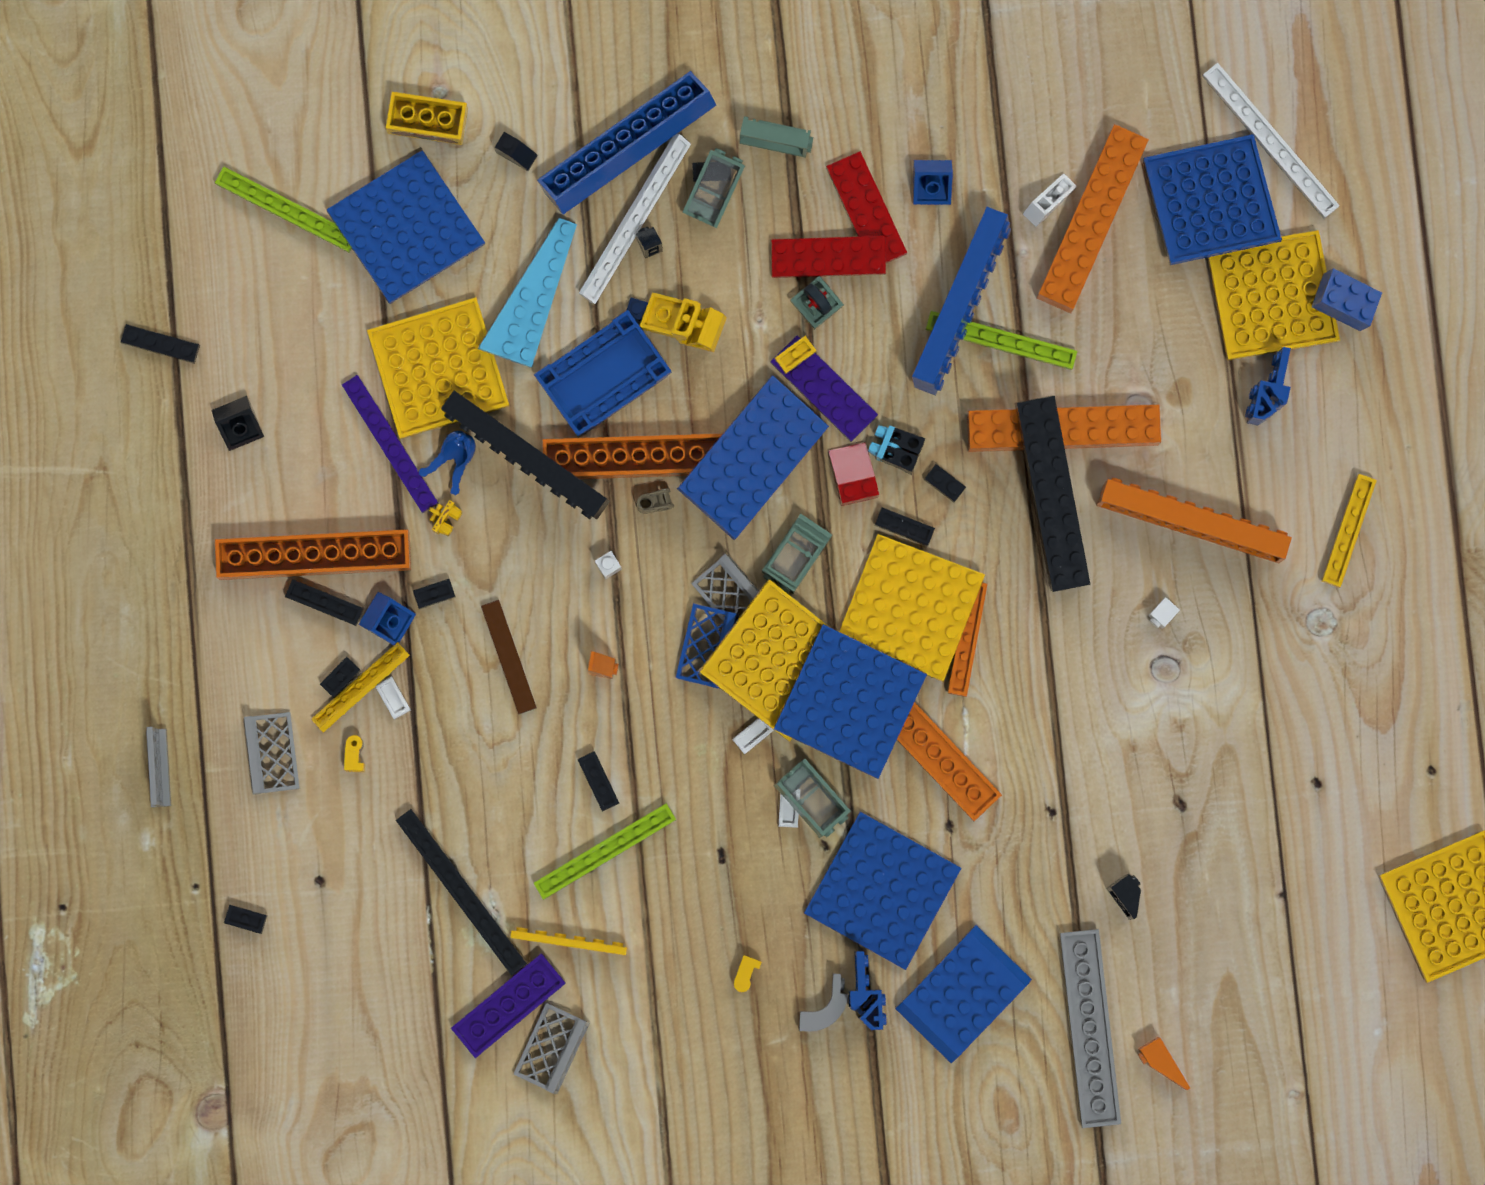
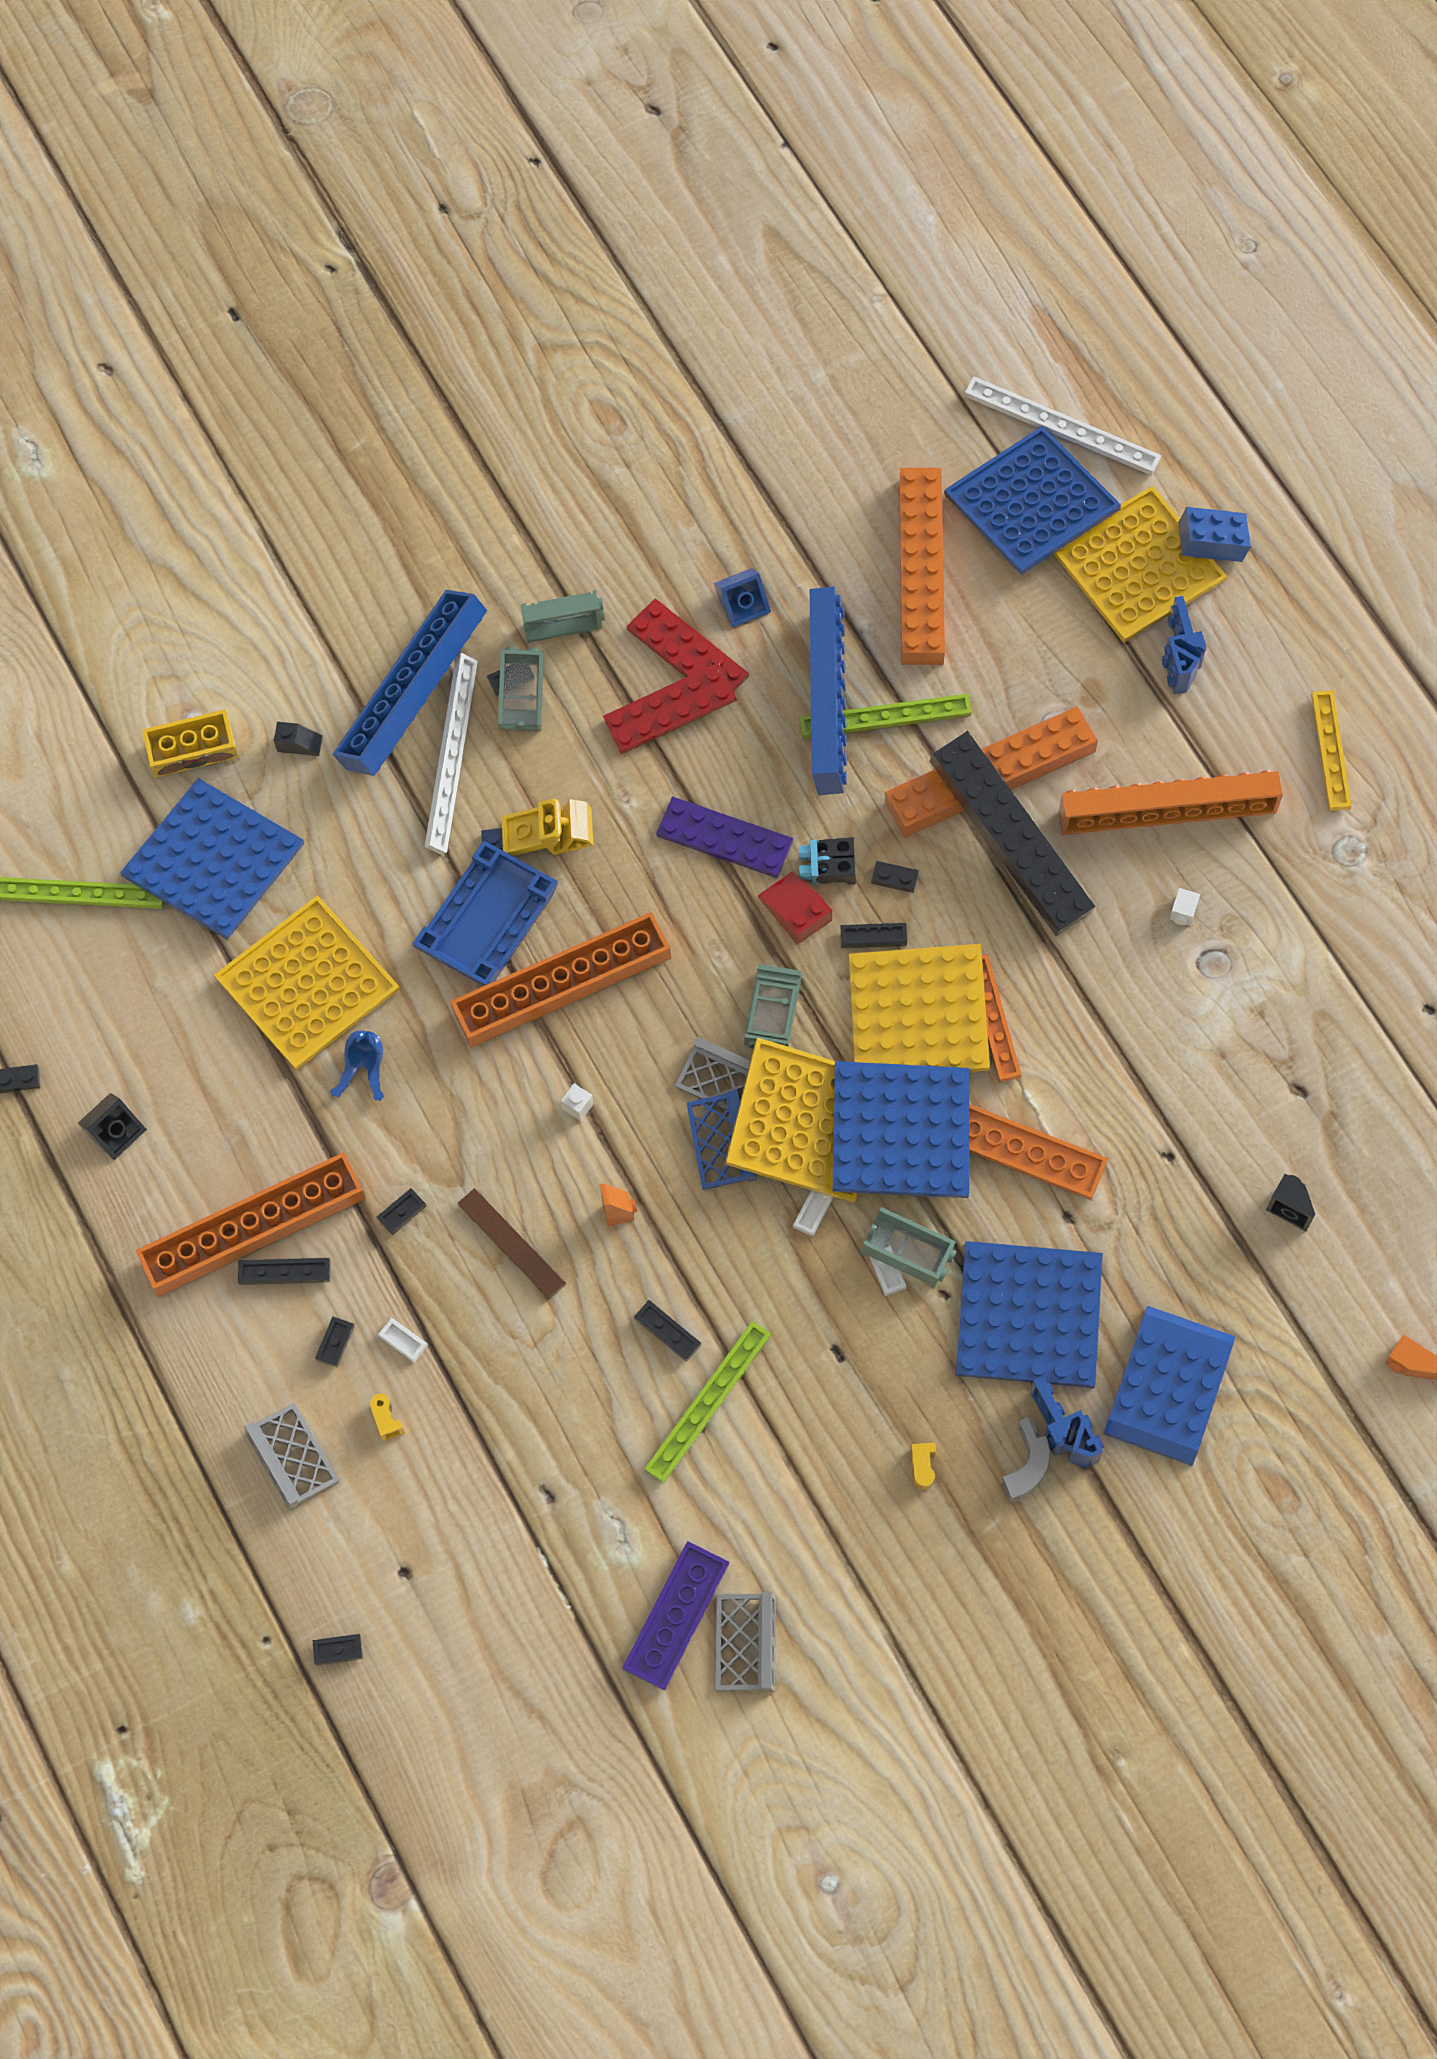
camera: 15 degrees left, 15 degrees down
(158, 767) = (169, 1524): light grey fence -> none
(360, 687) = (361, 1342): yellow plate -> none
(387, 618) = (360, 1258): blue slope -> none
(389, 444) = (287, 1080): dark purple plate -> none
(449, 511) = (378, 1137): yellow hips -> none
(461, 892) = (569, 1514): black plate -> none
(523, 318) = (376, 893): medium azure wing -> none
(526, 455) = (439, 1022): black brick -> none
(577, 942) = (722, 1512): yellow plate -> none
(649, 242) = (477, 768): black slope -> none
(656, 501) = (602, 1016): dark tan piece -> none
(752, 457) = (682, 928): blue plate -> none
(795, 354) = (679, 812): yellow plate -> none
(816, 302) = (677, 757): sand green plate -> none
(1049, 200) = (868, 567): white slope -> none
(1090, 1028) = (1324, 1362): light grey plate -> none

